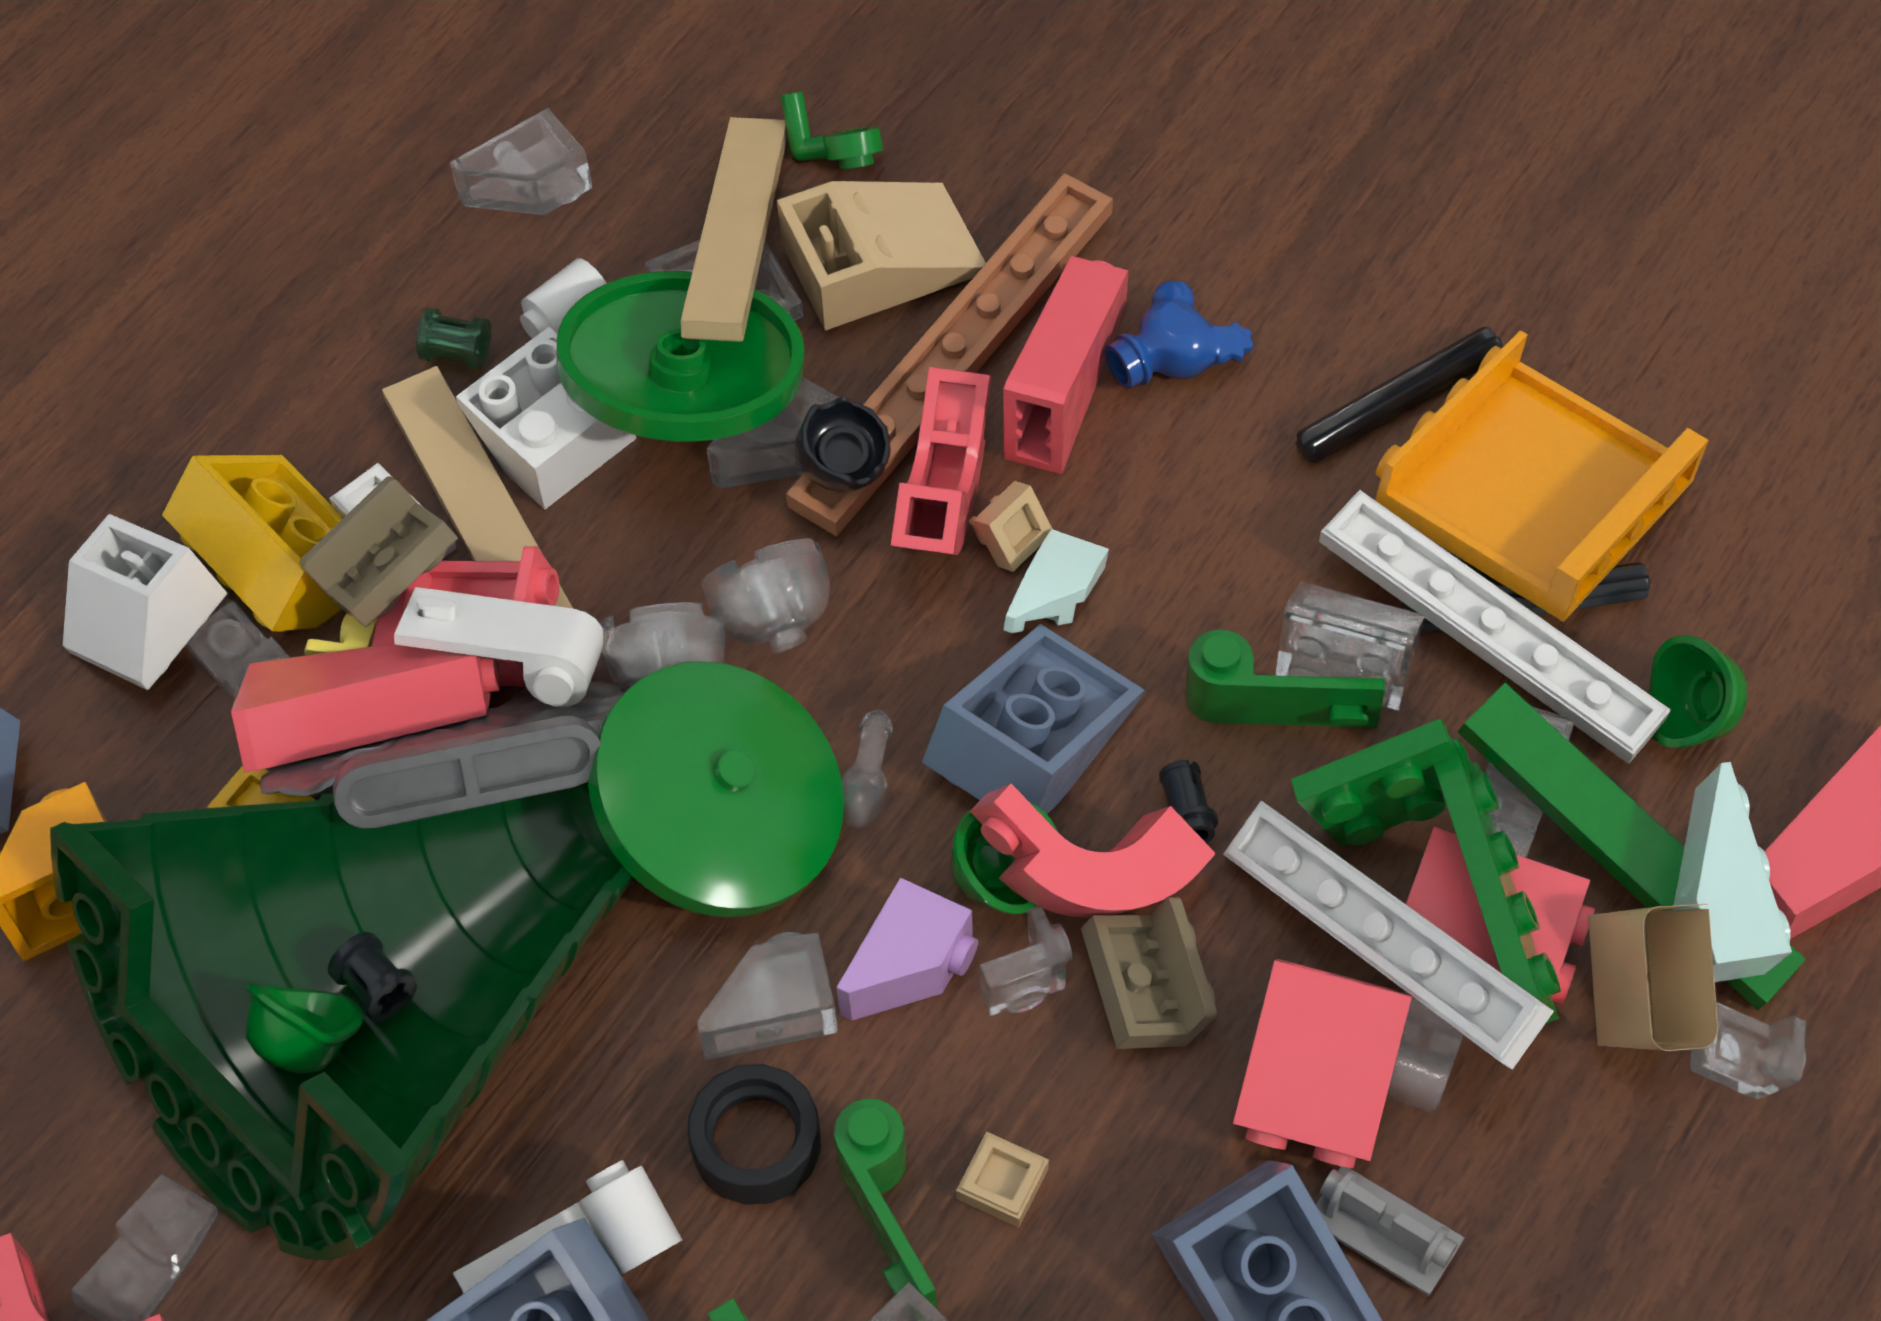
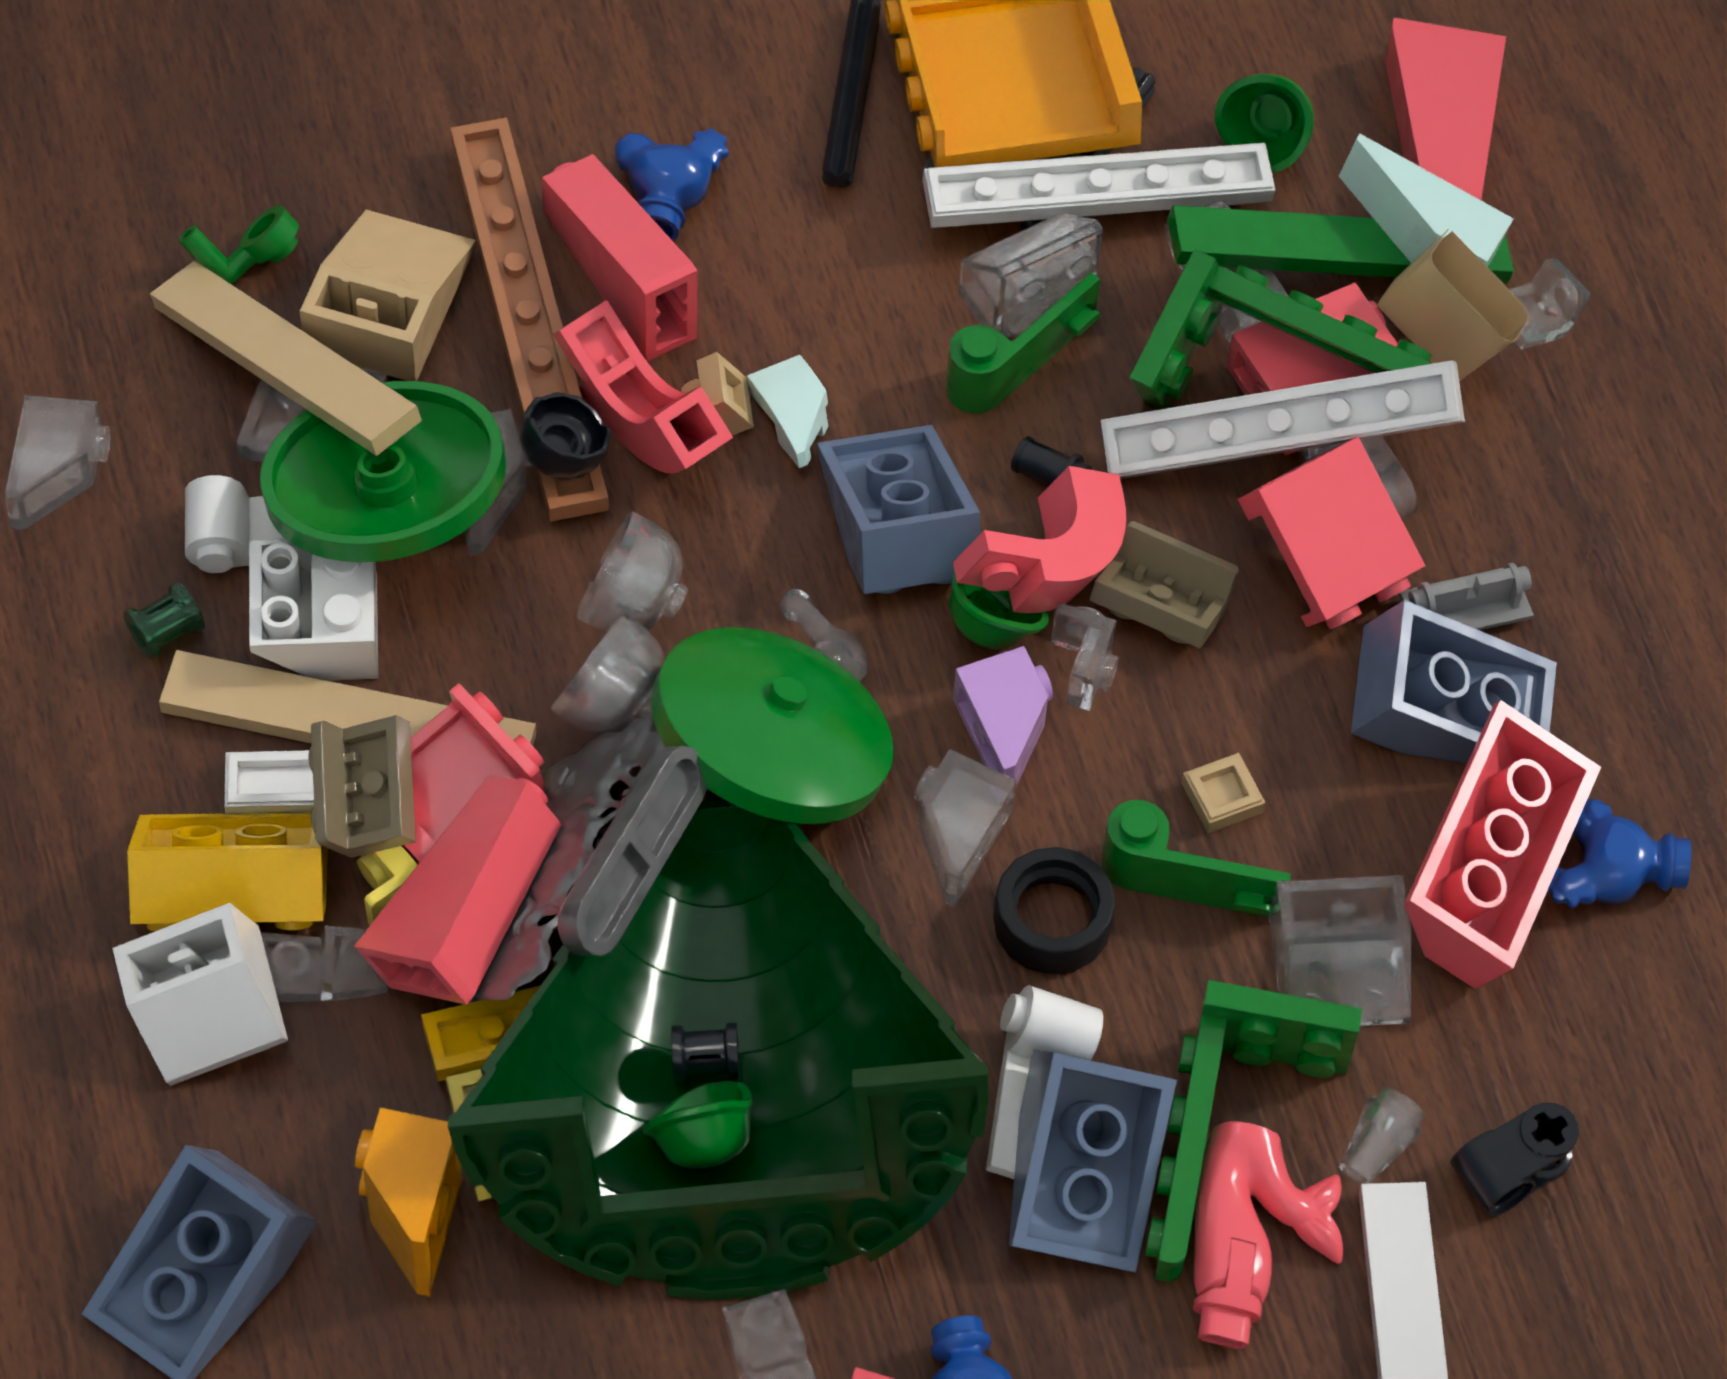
camera: 55 degrees left, 0 degrees up
(552, 641) = (520, 749): white door -> none

